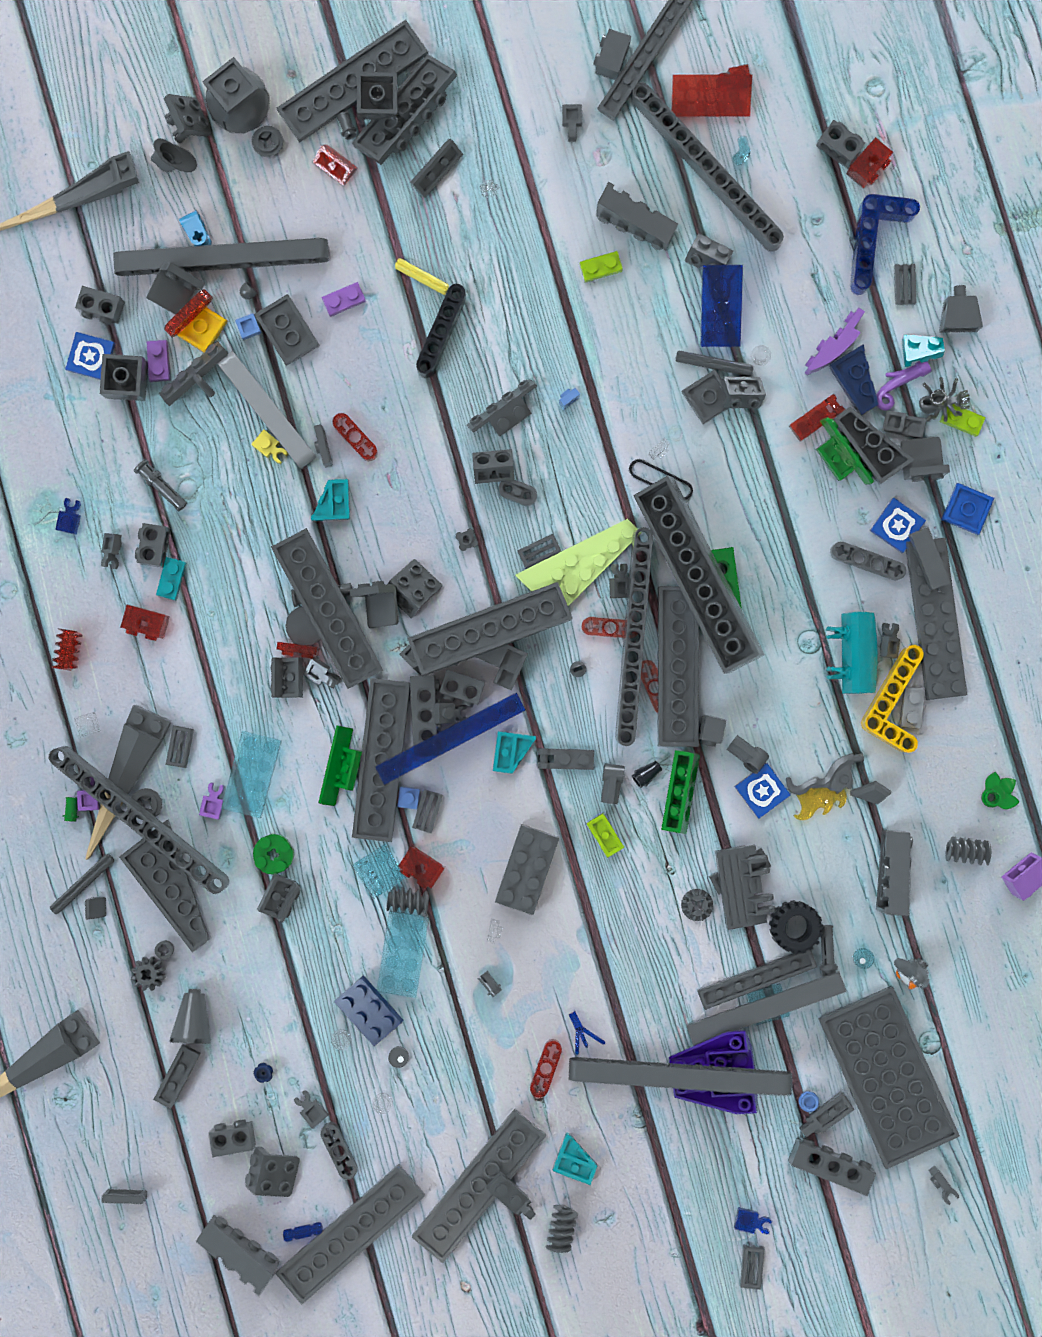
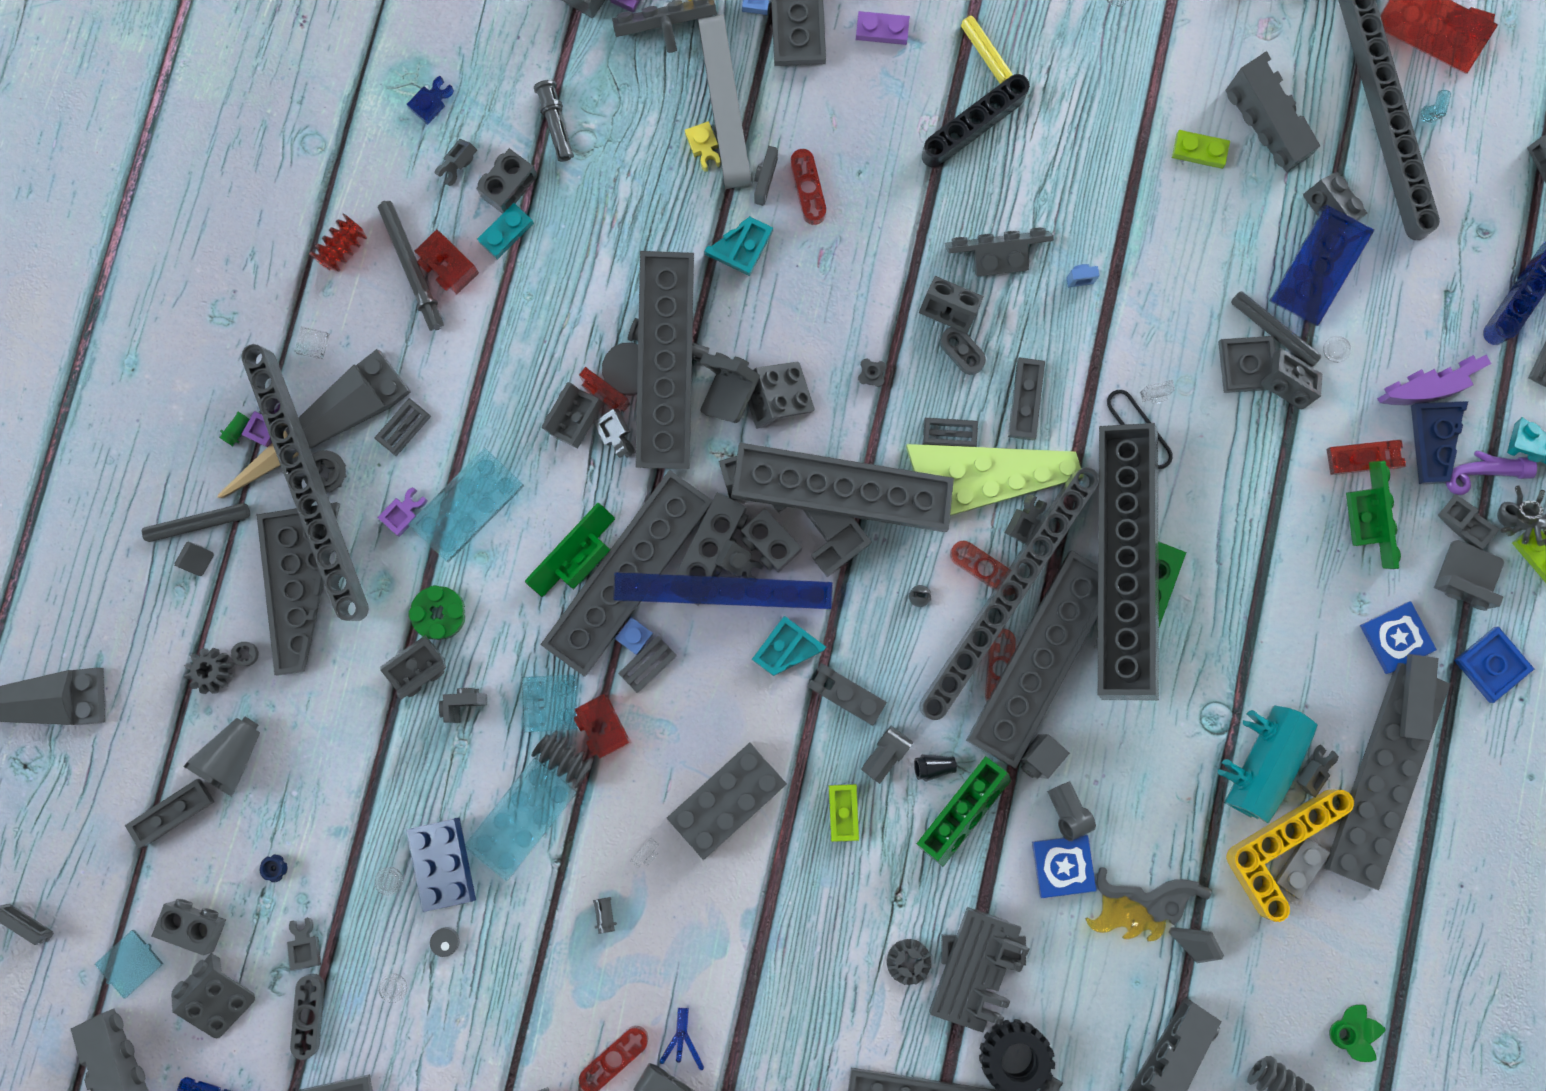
camera: 25 degrees right, 5 degrees down
(125, 639) = (426, 303): none -> dark grey axle
(206, 1182) = (128, 964): none -> clear light blue piece
(324, 897) = (451, 703): none -> dark grey bracket
(576, 501) = (1026, 399): none -> dark grey plate
(868, 559) = (1337, 662): dark grey beam -> none
(874, 448) = (1420, 525): dark grey wedge -> none

